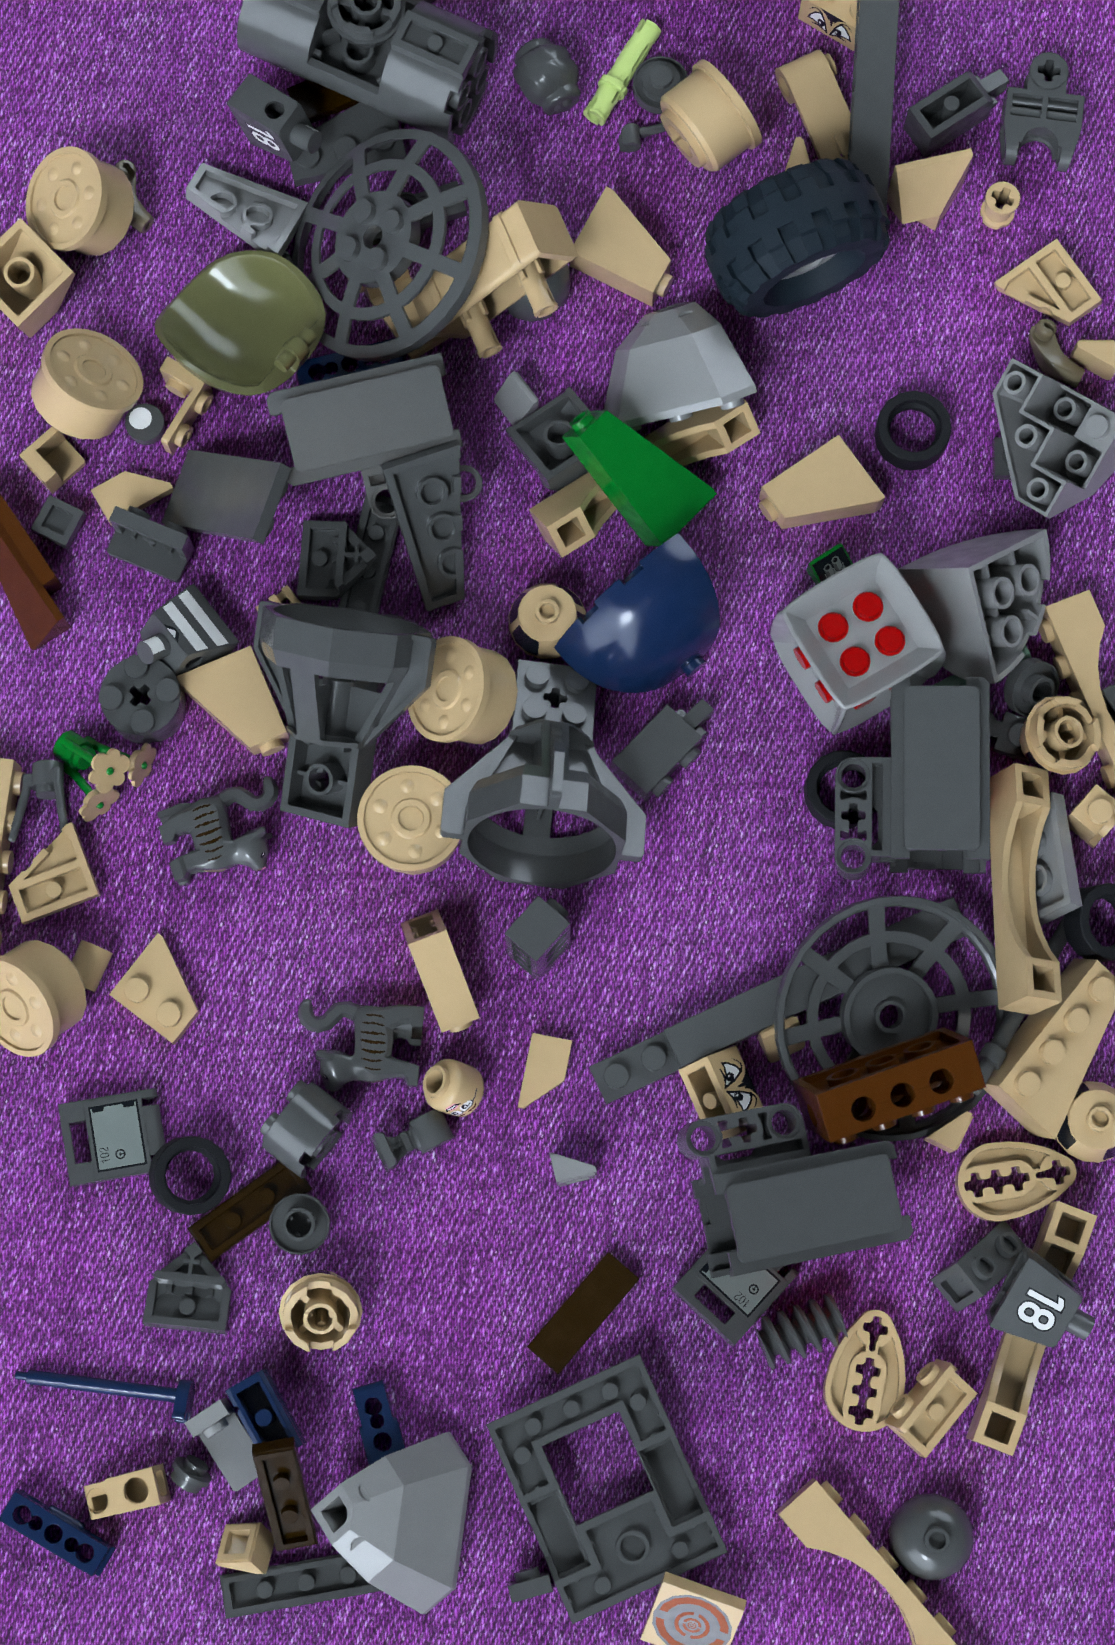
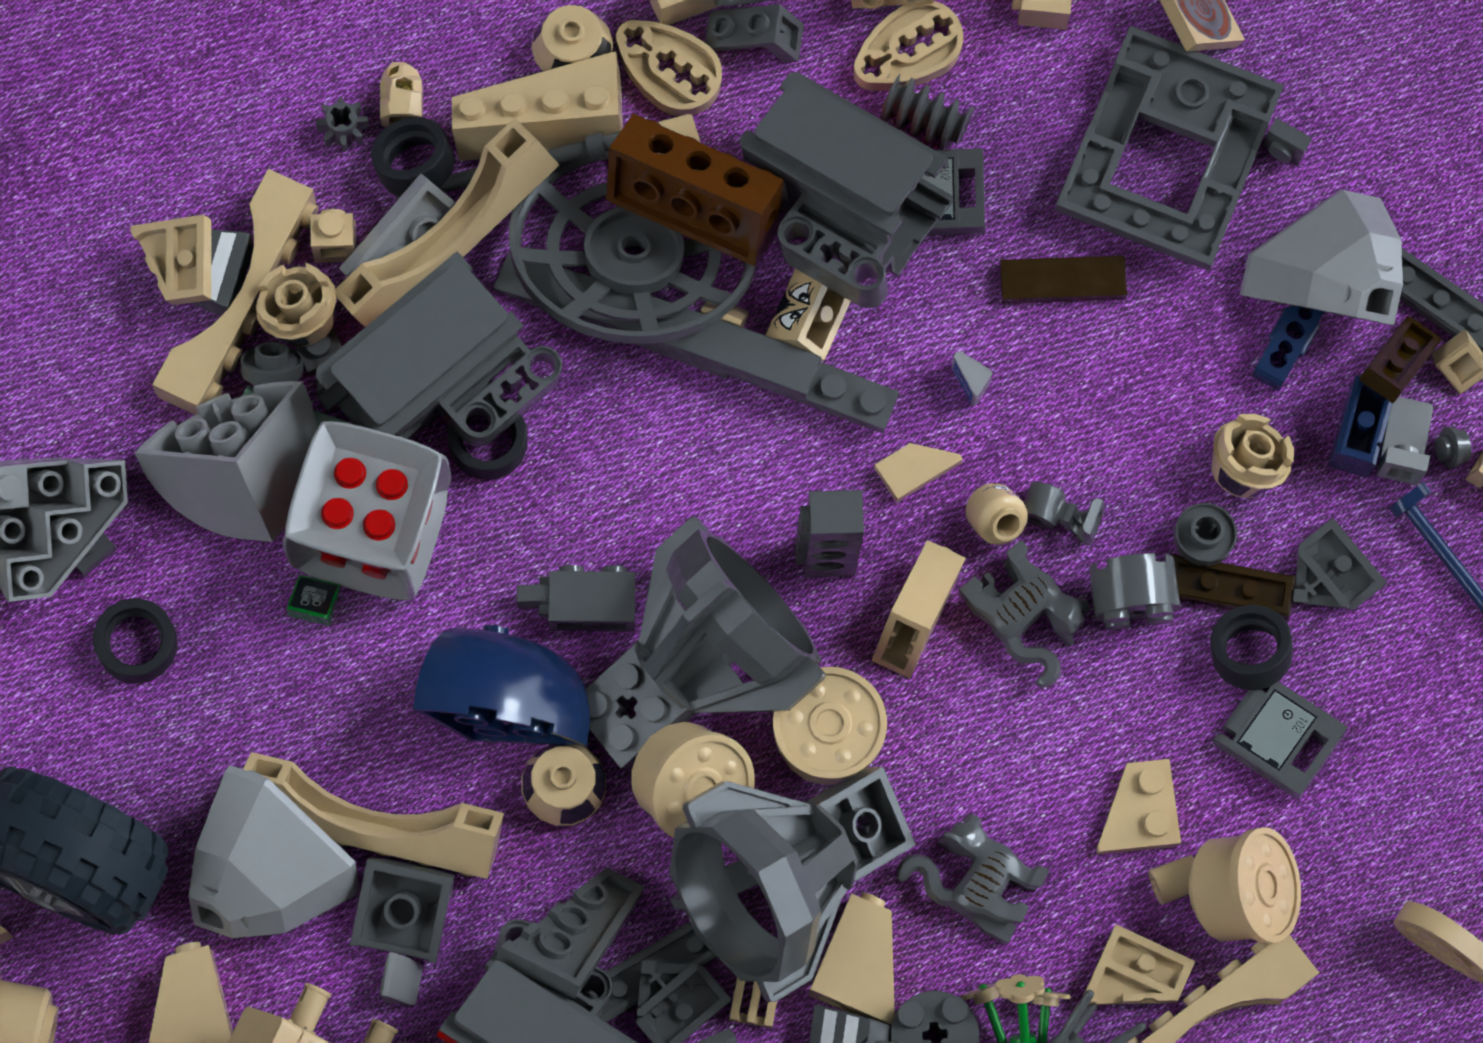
camera: 140 degrees left, 5 degrees down
(638, 478) = (385, 802): green slope -> none
(821, 489) = (253, 669): tan slope -> none

